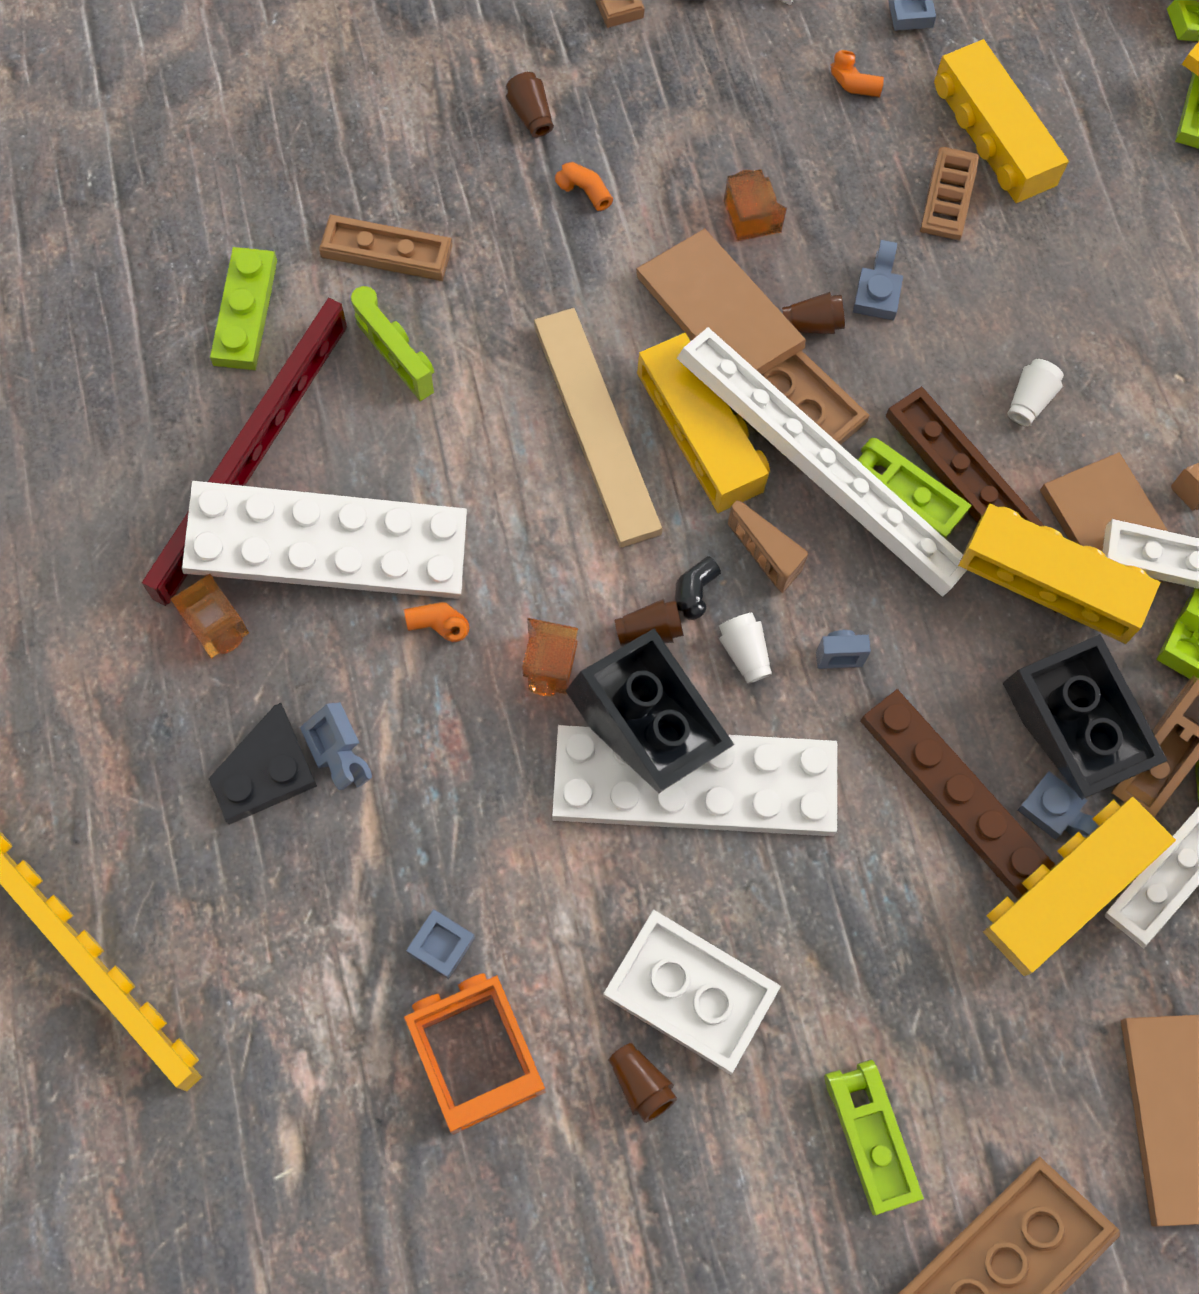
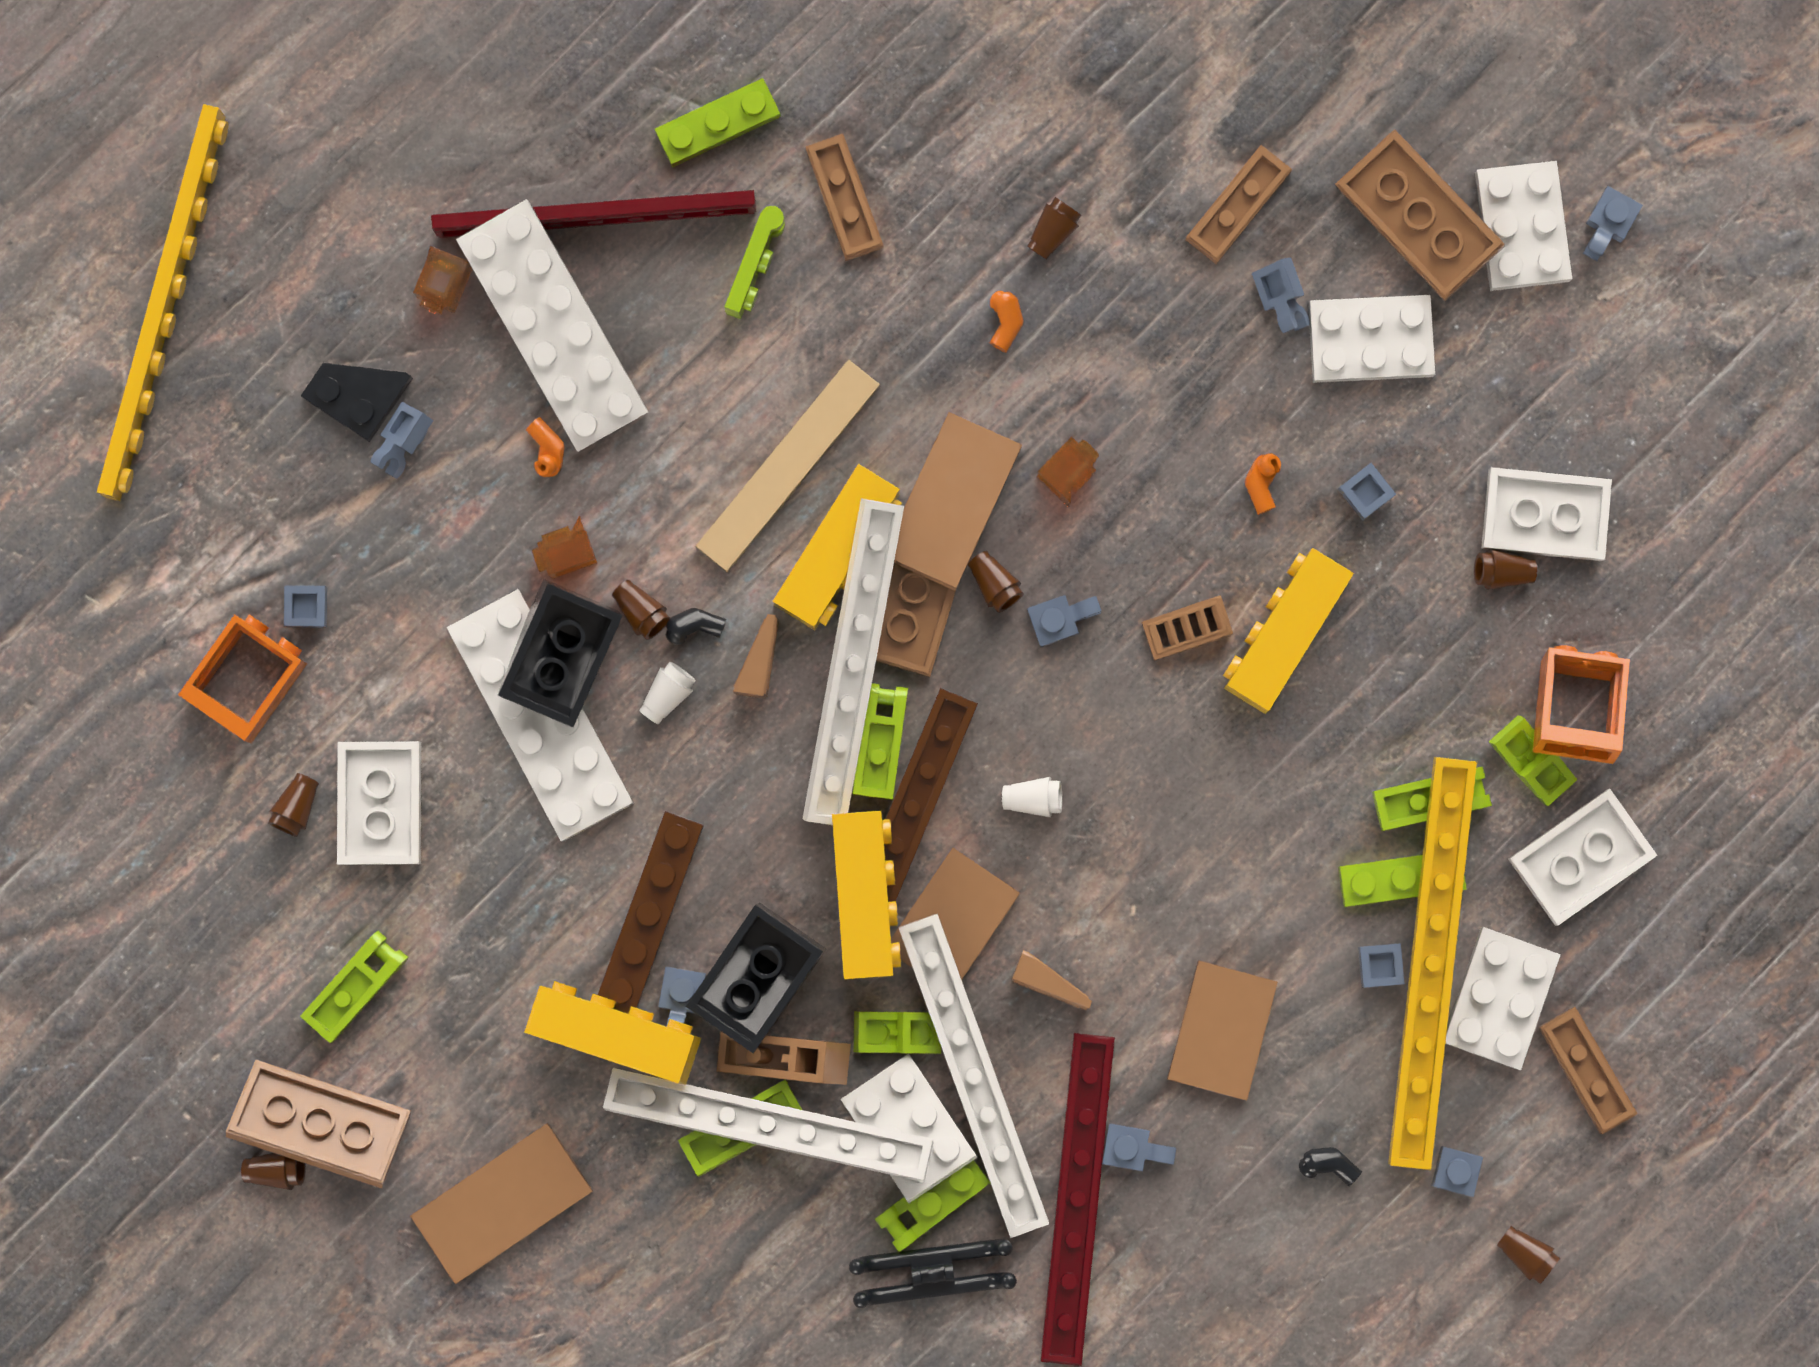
camera: 60 degrees right, 15 degrees up
(842, 650) = (708, 765): sand blue plate -> none

